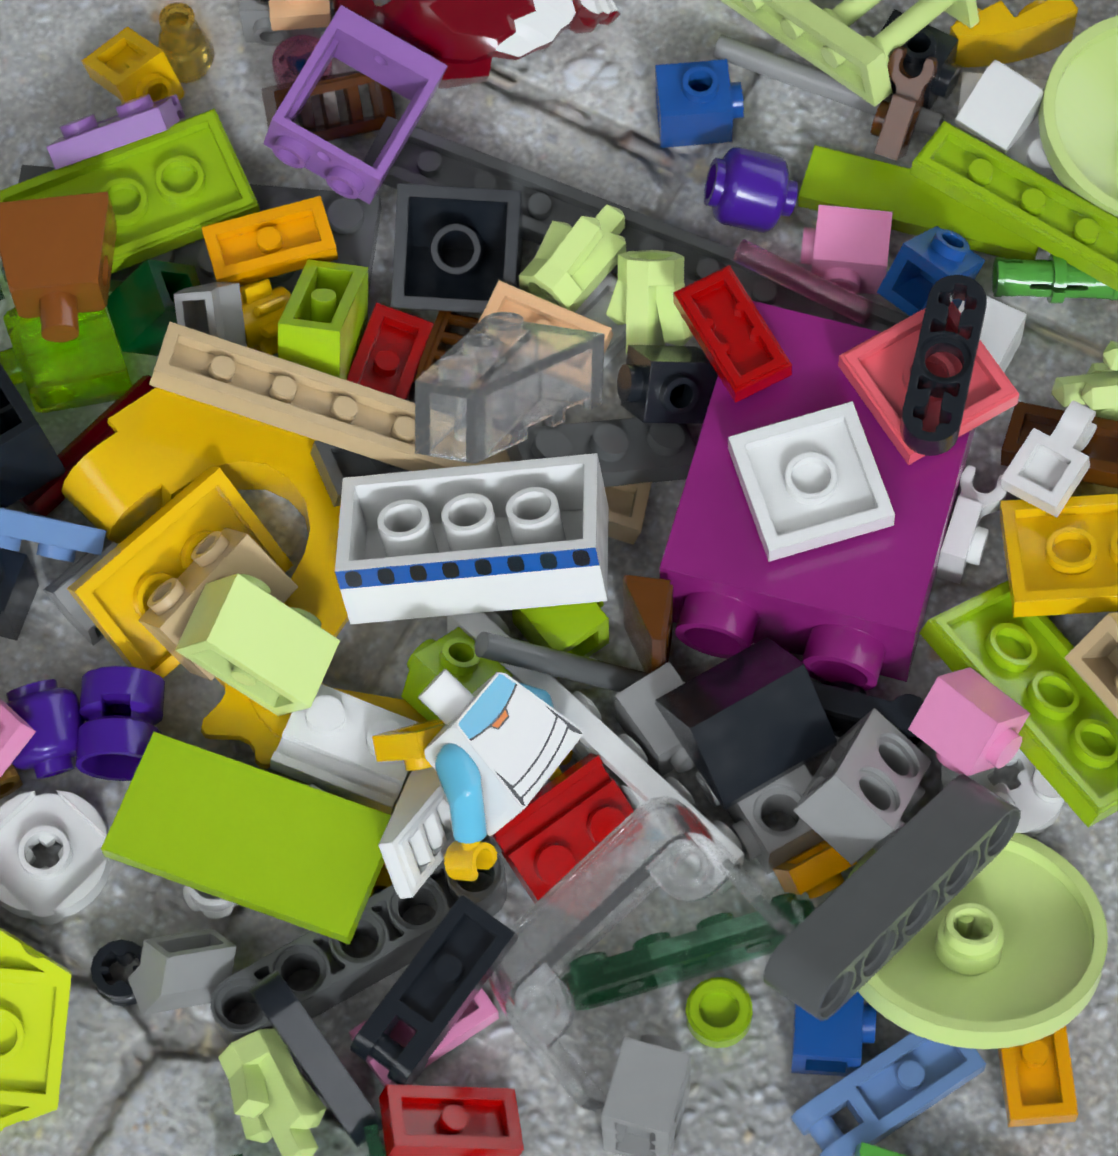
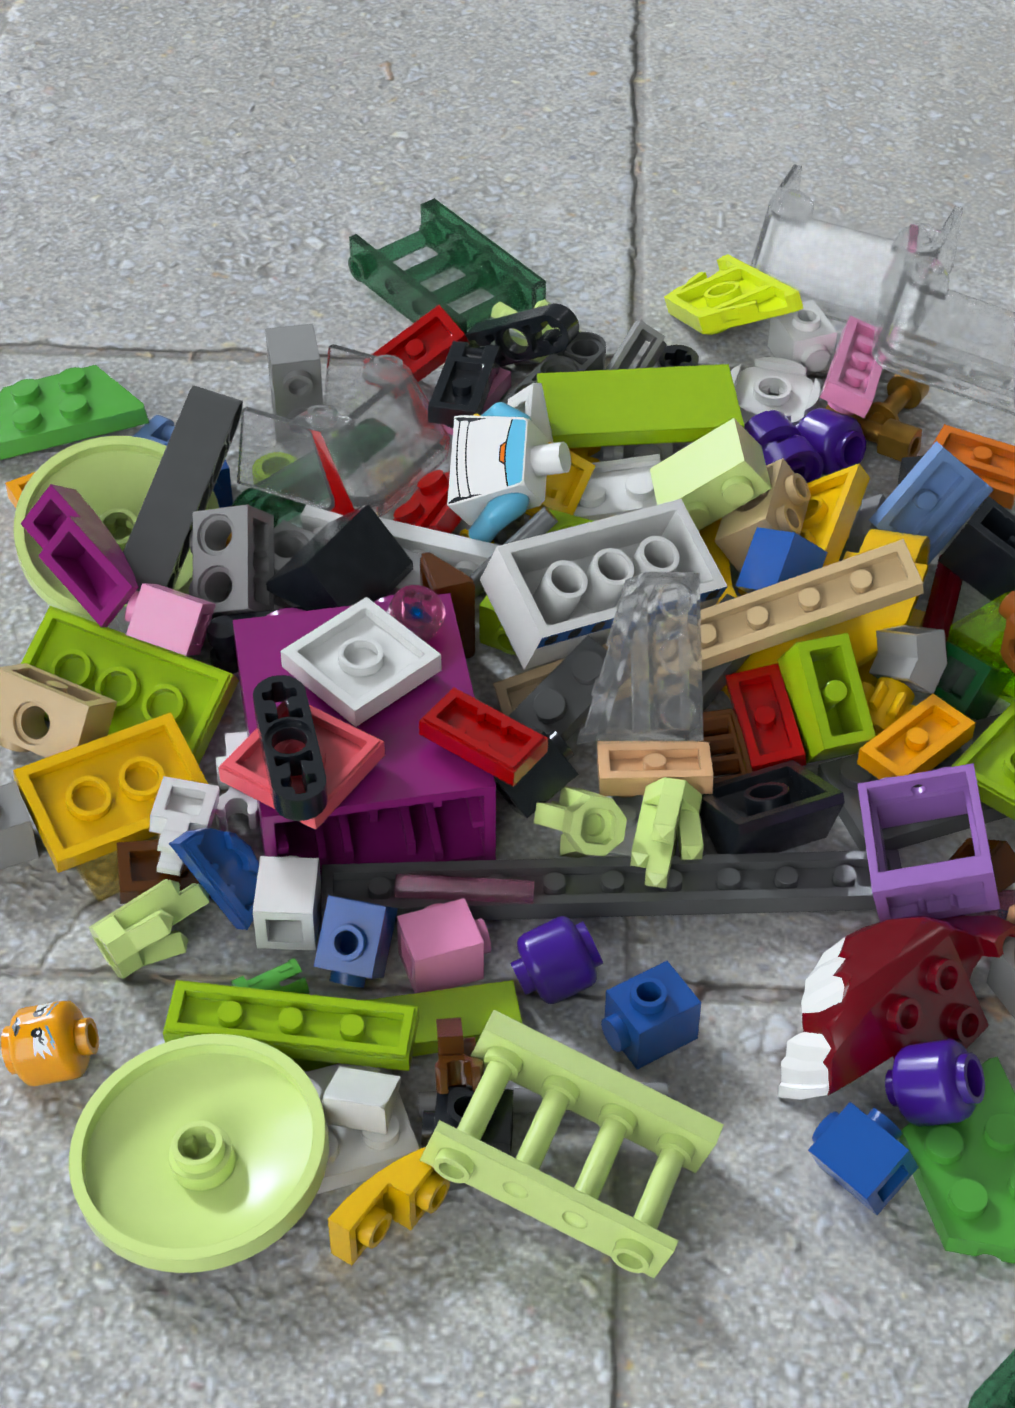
camera: 150 degrees right, 20 degrees down
(268, 484) = (776, 558): none -> blue brick
(720, 524) = (418, 610): none -> clear pink tile
(1042, 843) = (81, 552): none -> magenta slope
(1043, 386) = (224, 869): none -> blue plate

